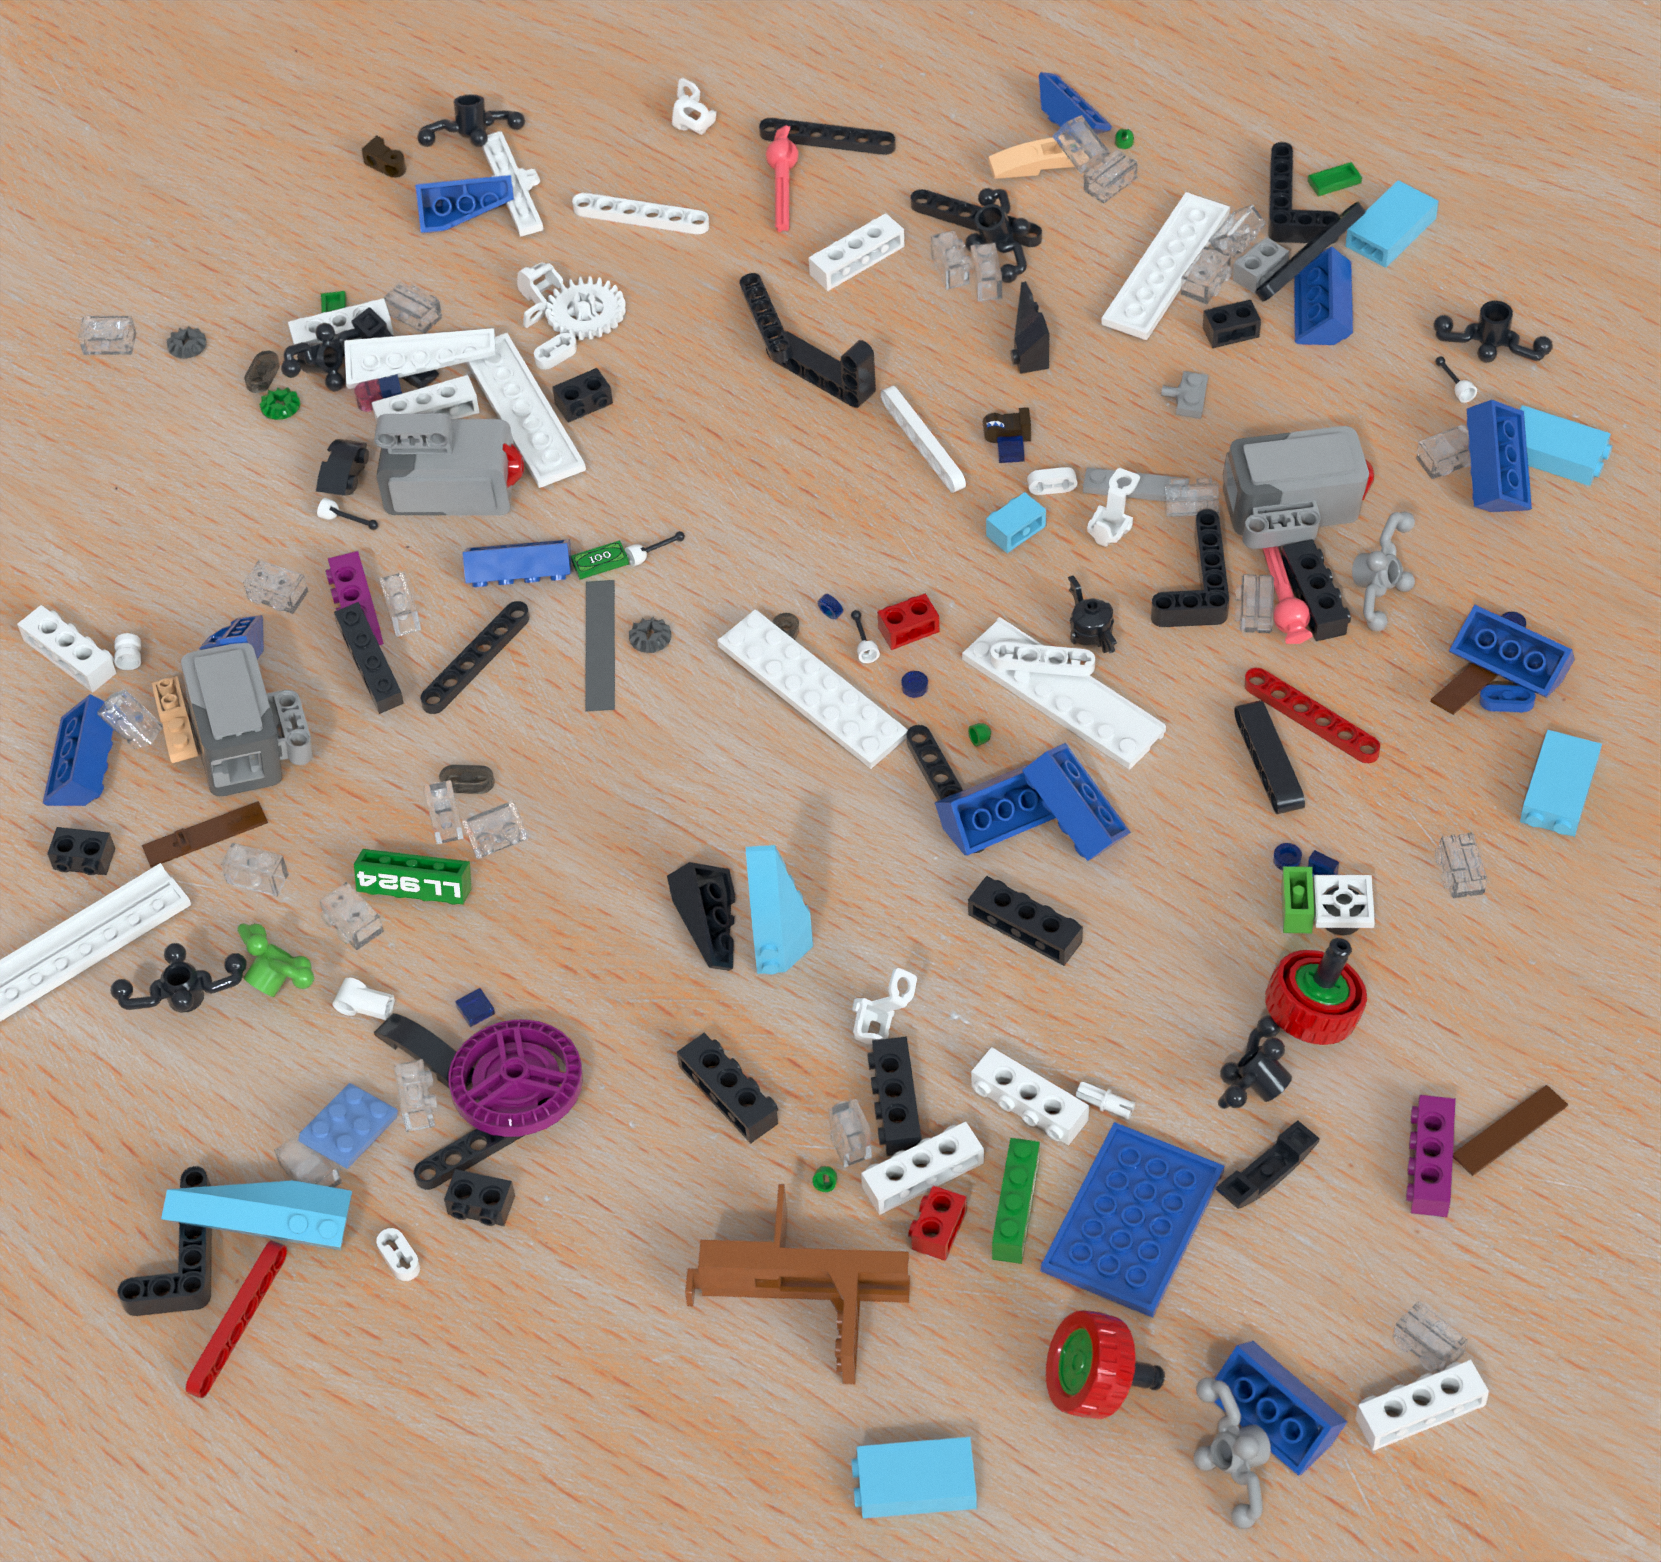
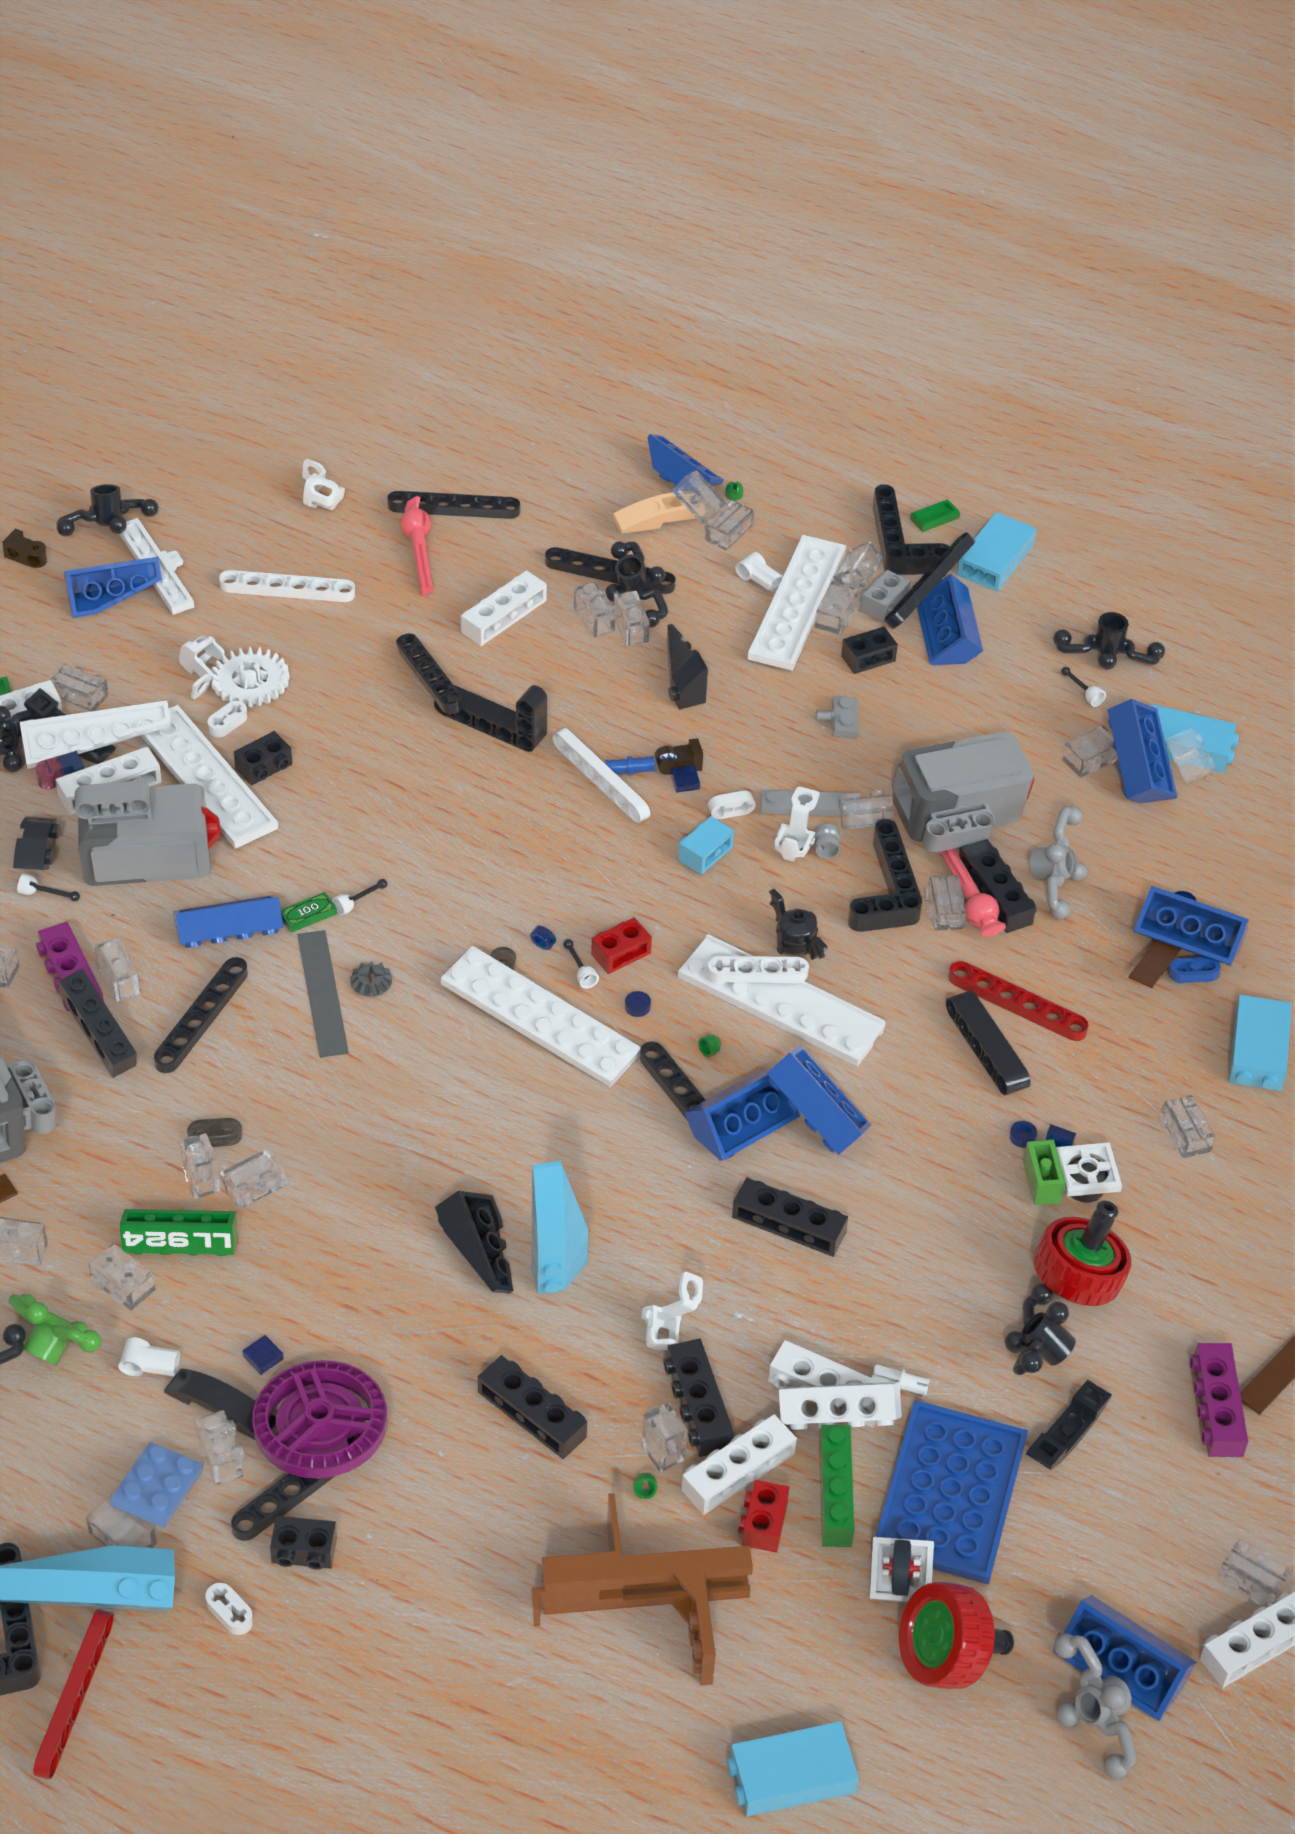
camera: 15 degrees left, 5 degrees down
(956, 430) = (631, 765): none -> blue pin
(1062, 1289) = (900, 1568): none -> white plate
(1078, 1119) = (885, 1395): none -> white brick
(1129, 227) = (755, 568): none -> white piece
(1144, 527) = (827, 841): none -> light grey wheel
(1550, 465) = (1189, 756): none -> clear brick

